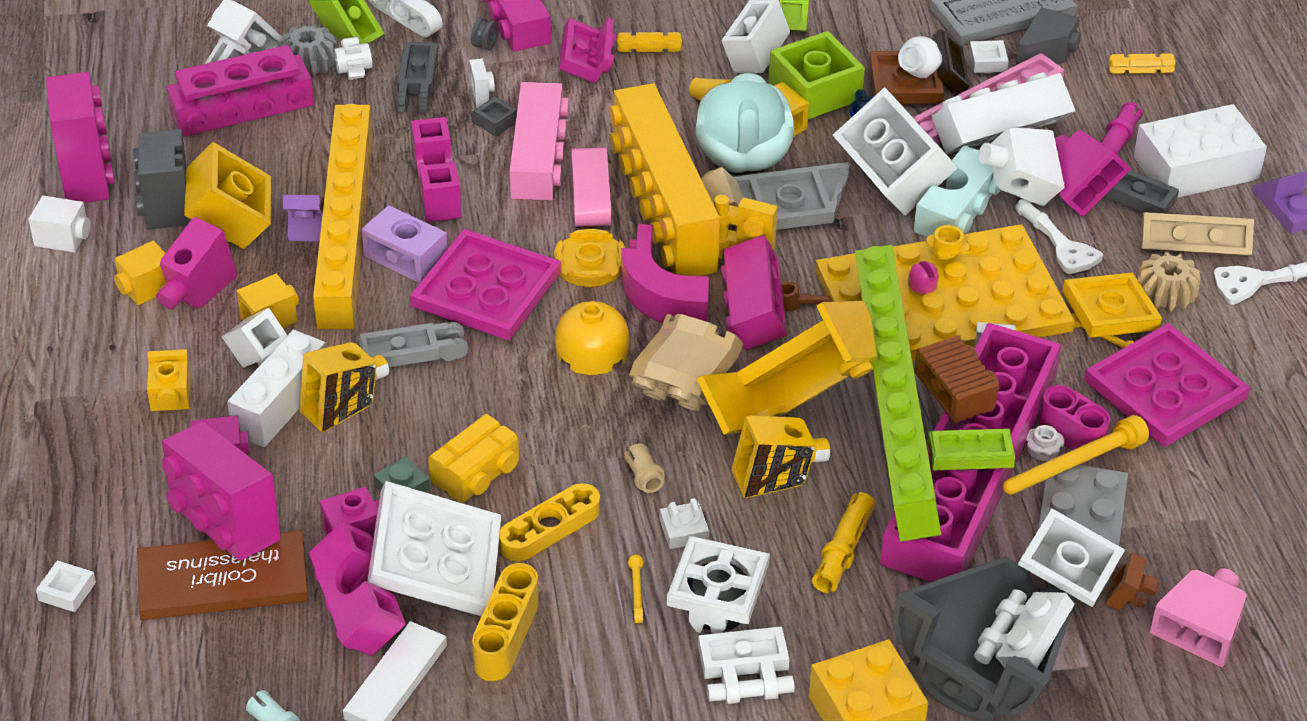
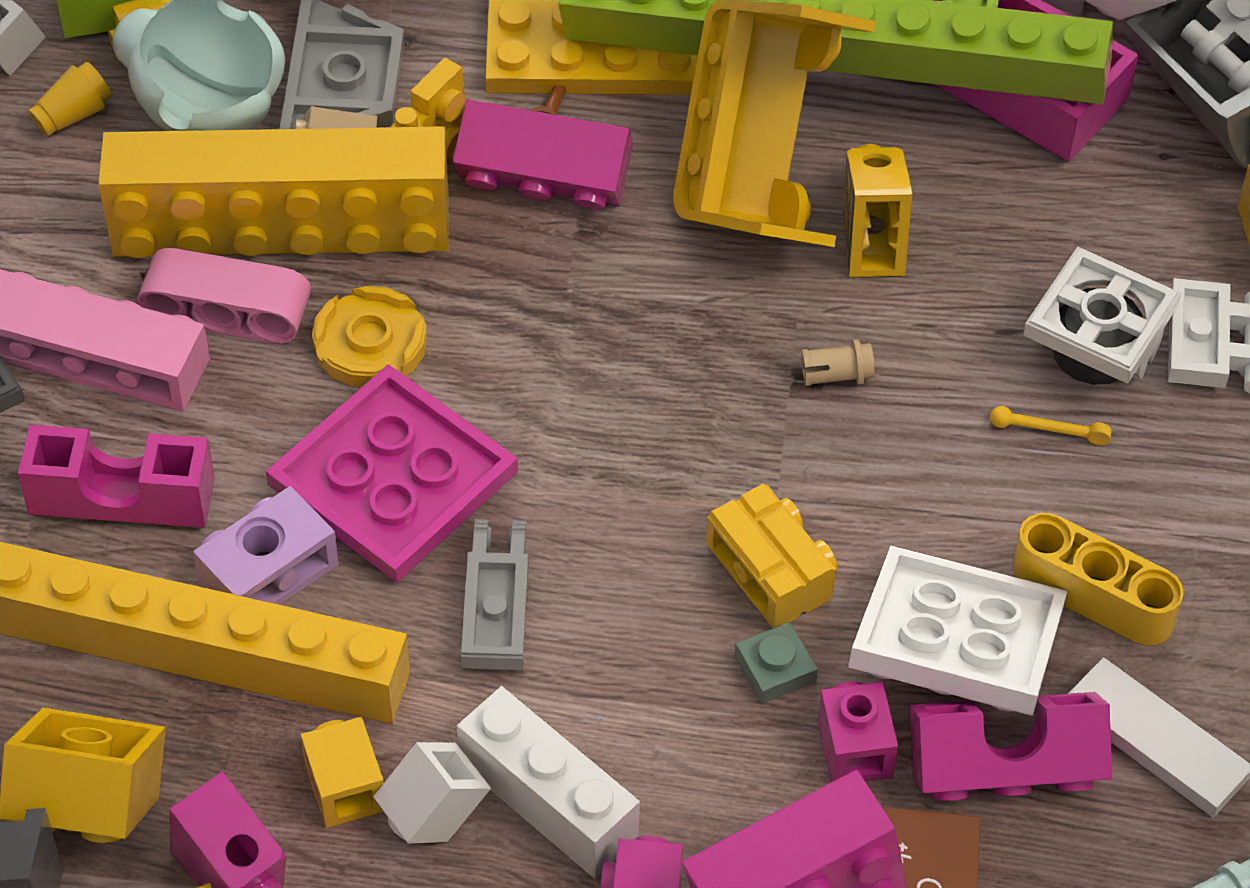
camera: 75 degrees left, 10 degrees up
(304, 216) = (134, 680): medium lavender slope -> none
(338, 383) = (572, 668): yellow torso -> none
(542, 537) = (905, 472): yellow beam -> none
(592, 338) = (557, 367): yellow cylinder -> none
(657, 290) = (473, 273): dark pink arch -> none
(680, 355) = (672, 258): tan brick -> none
(683, 521) = (948, 345): white tile -> none
(839, 552) = (1048, 193): yellow pin -> none

